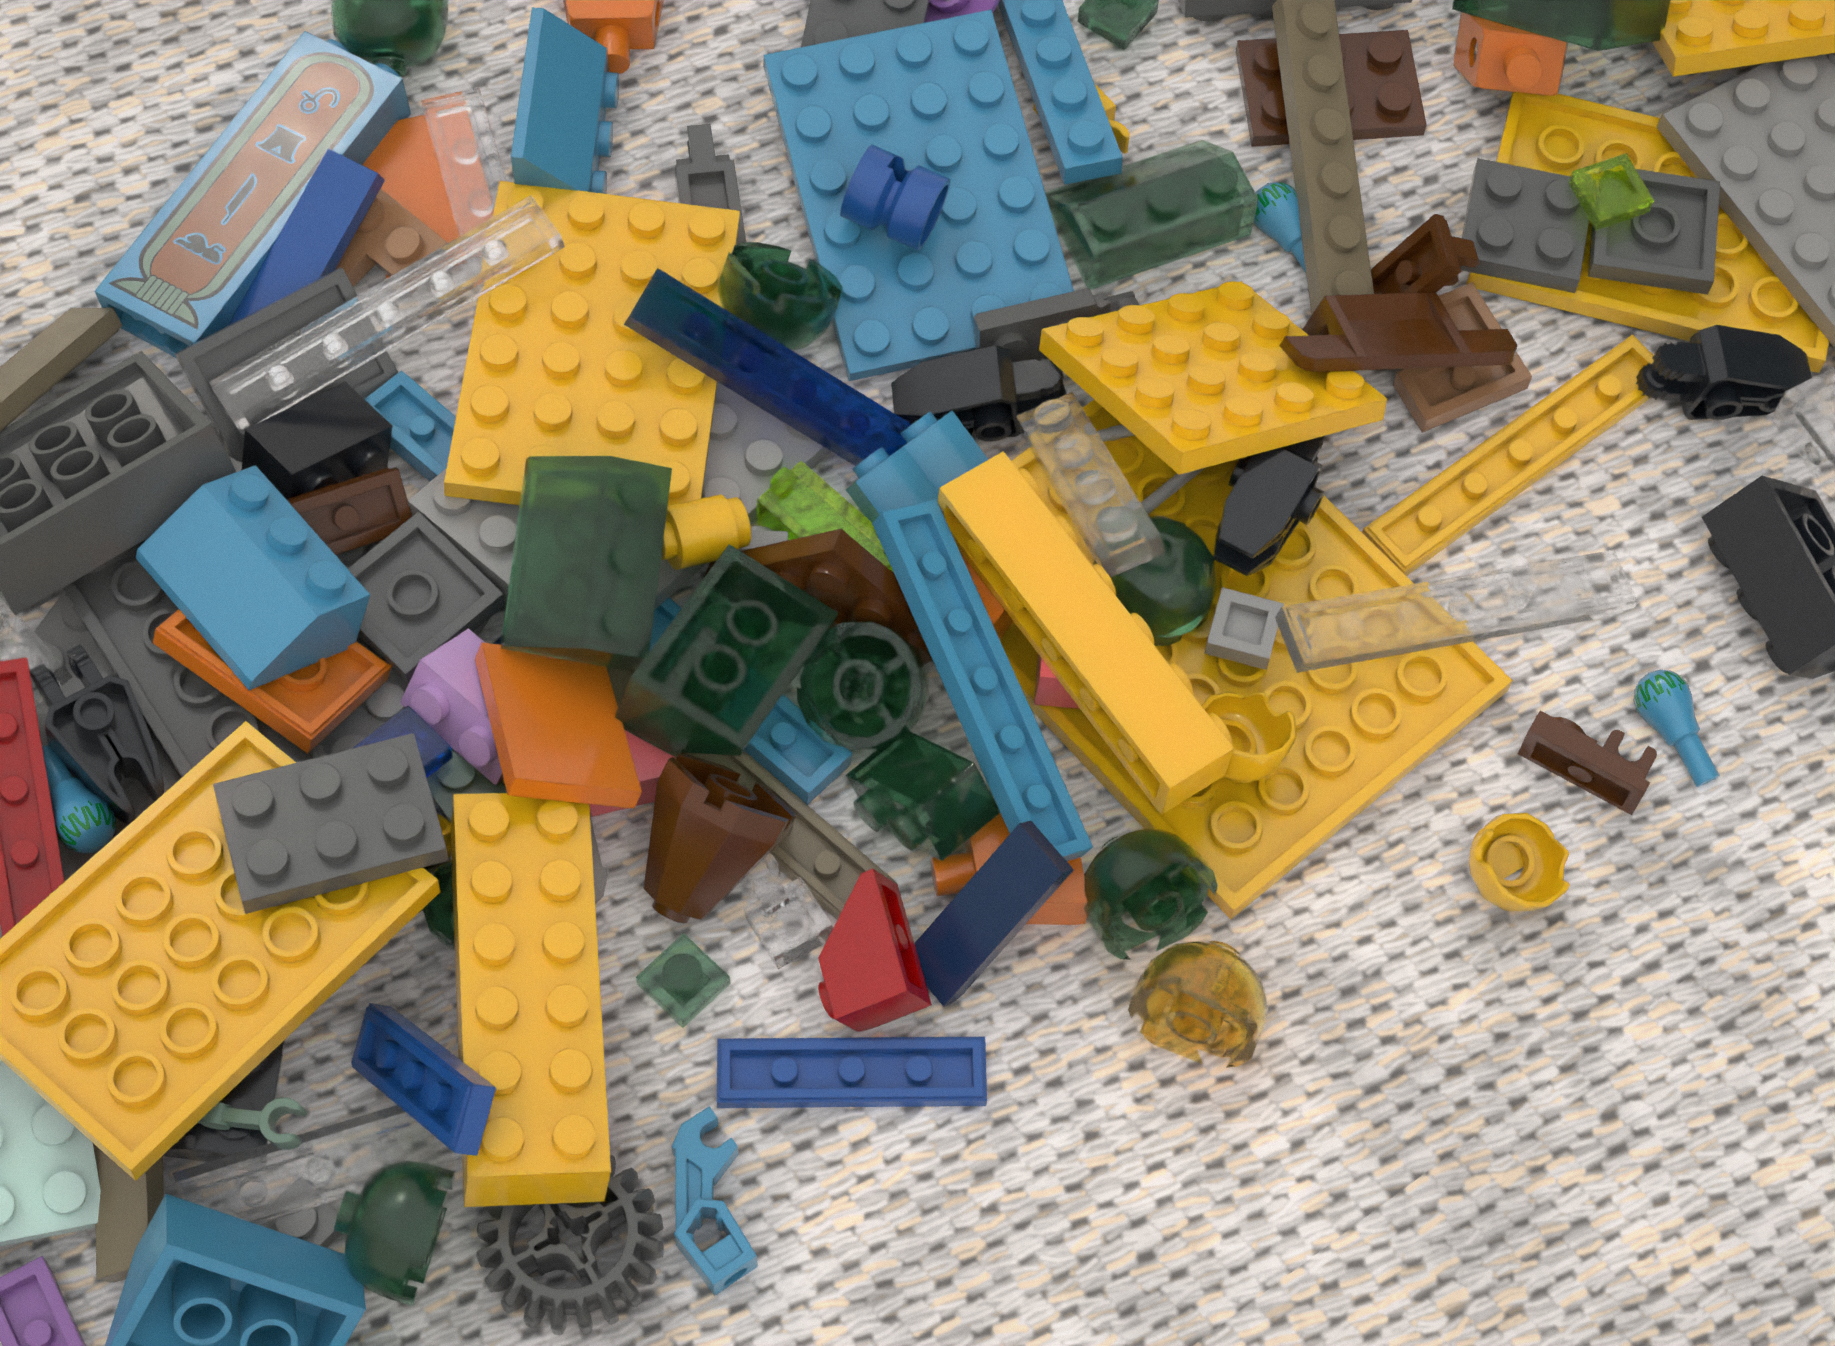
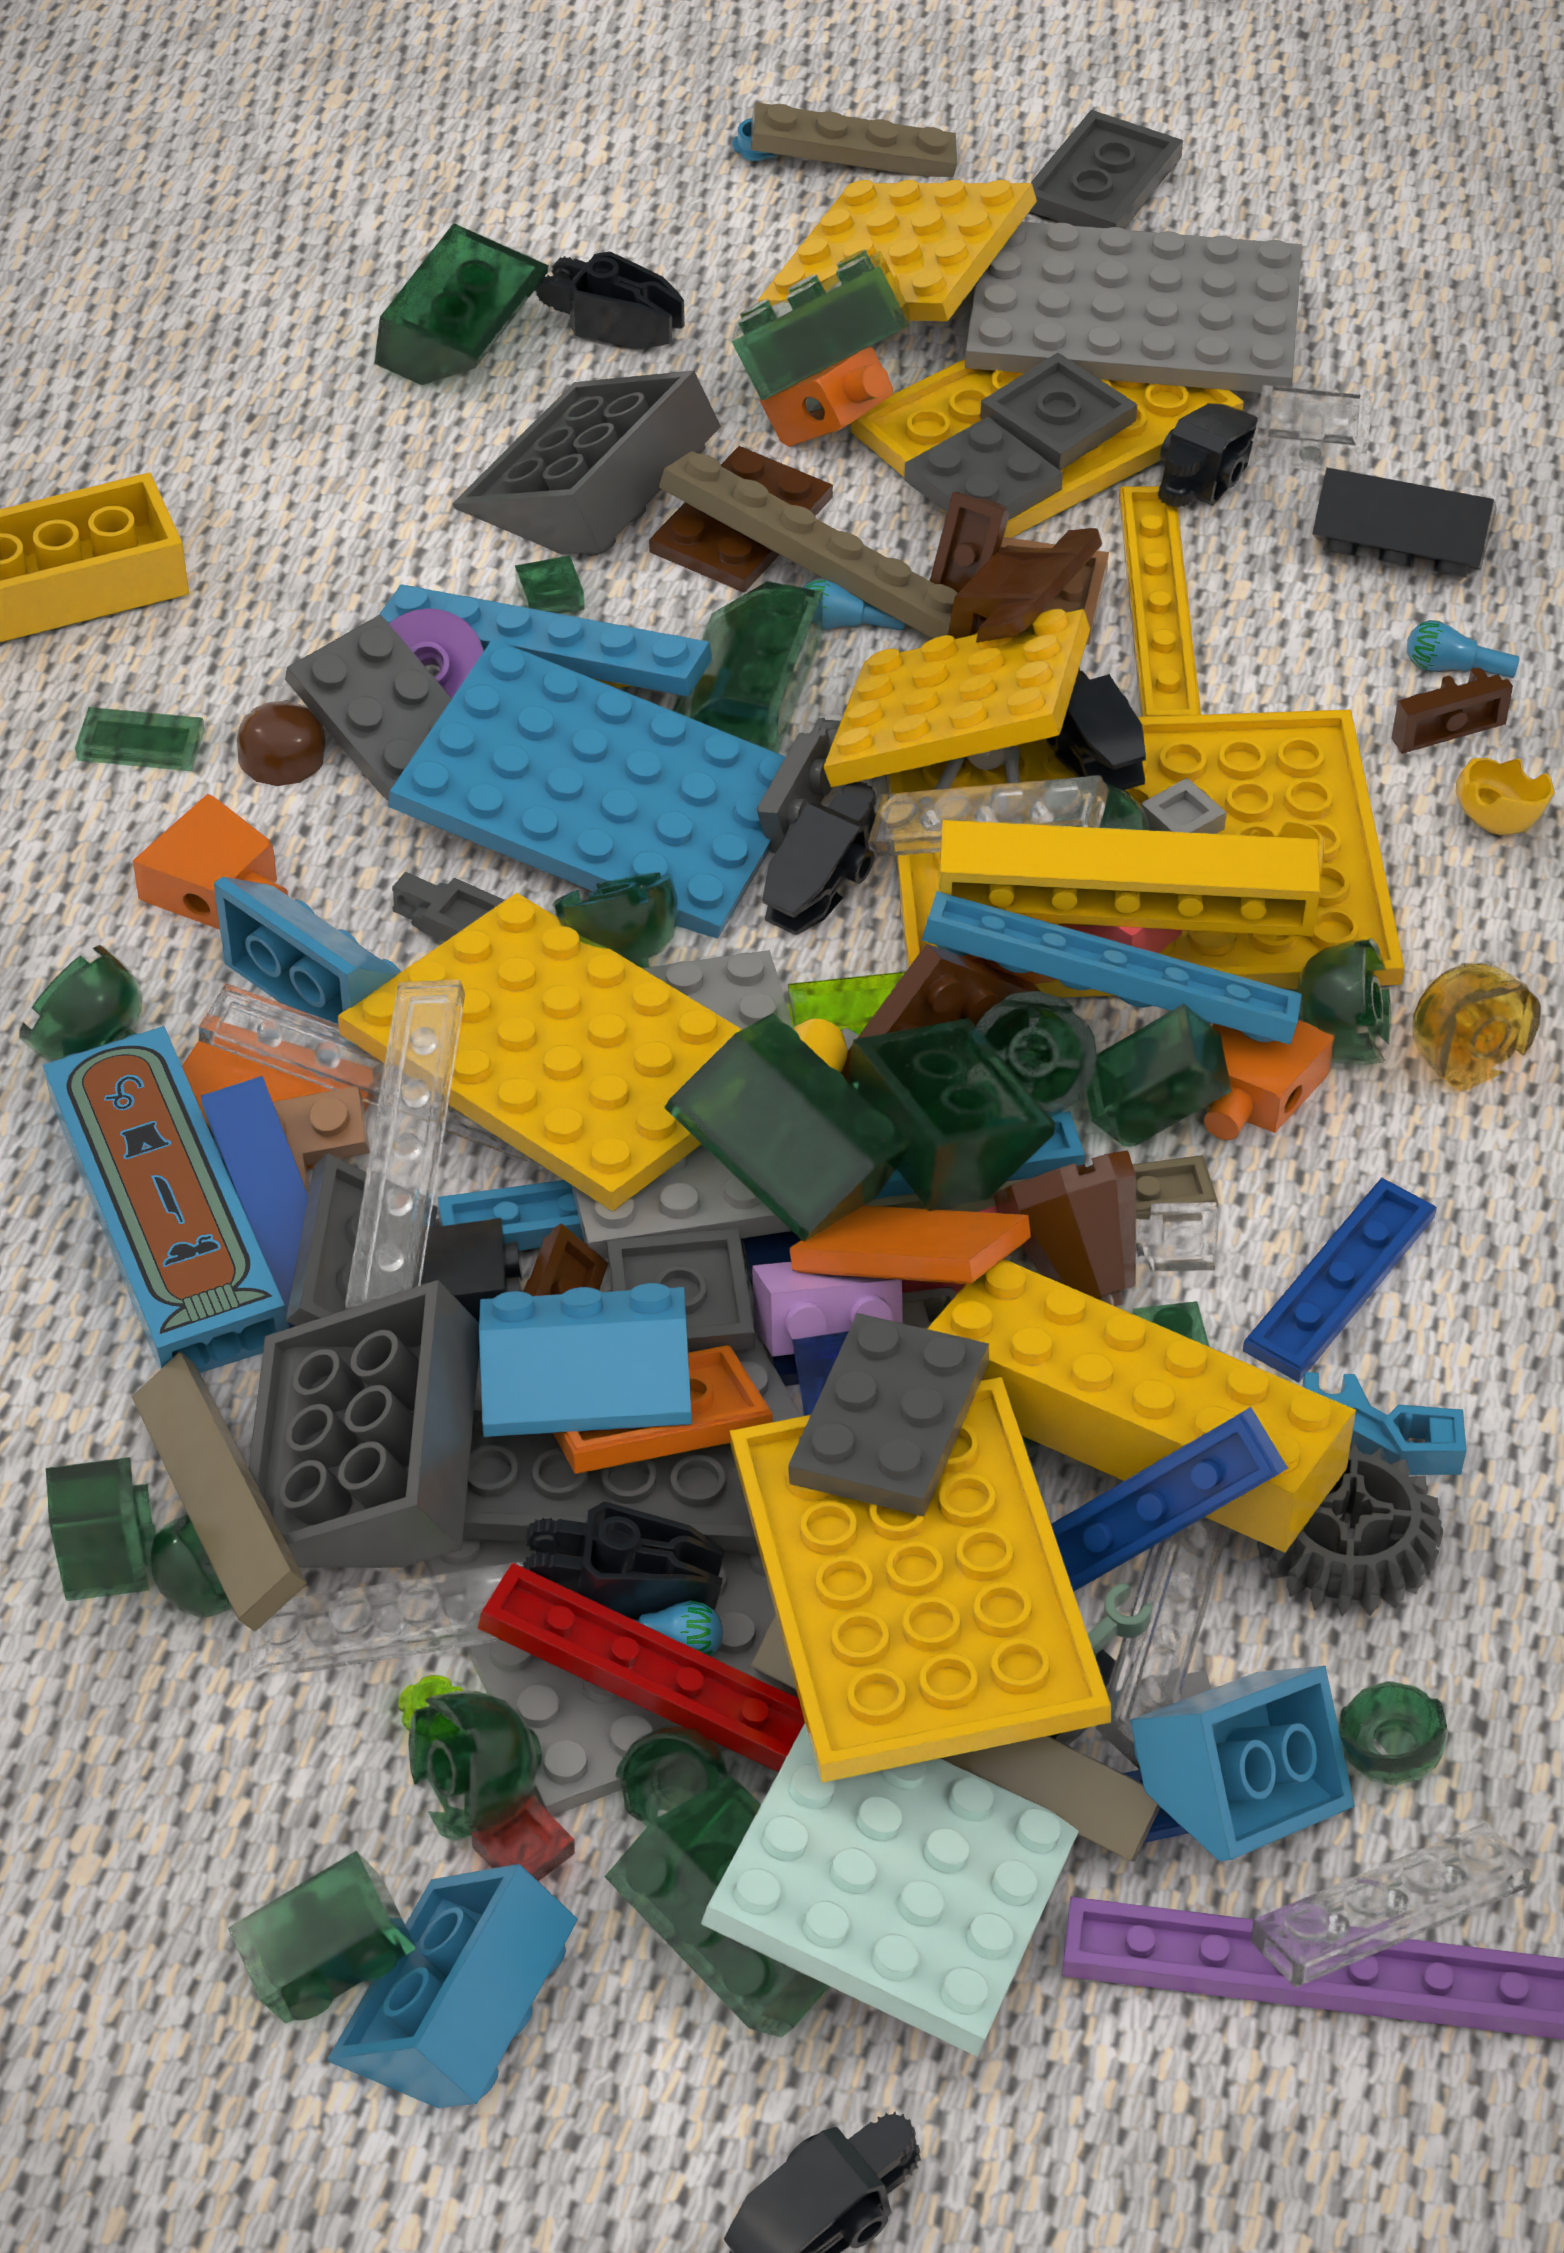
camera: 50 degrees left, 15 degrees down
(394, 1226) = (1265, 1610): clear green cylinder -> none
(764, 371) = (726, 946): clear blue tile -> none
(871, 959) = (1268, 1195): red slope -> none
(895, 197) = (627, 778): blue wheel -> none
(913, 474) = (874, 917): dark azure brick -> none
(989, 911) = (1298, 1093): dark blue tile -> none
(1454, 610) = (1269, 702): clear tile -> none
(1611, 191) = (1014, 405): clear neon green tile -> none

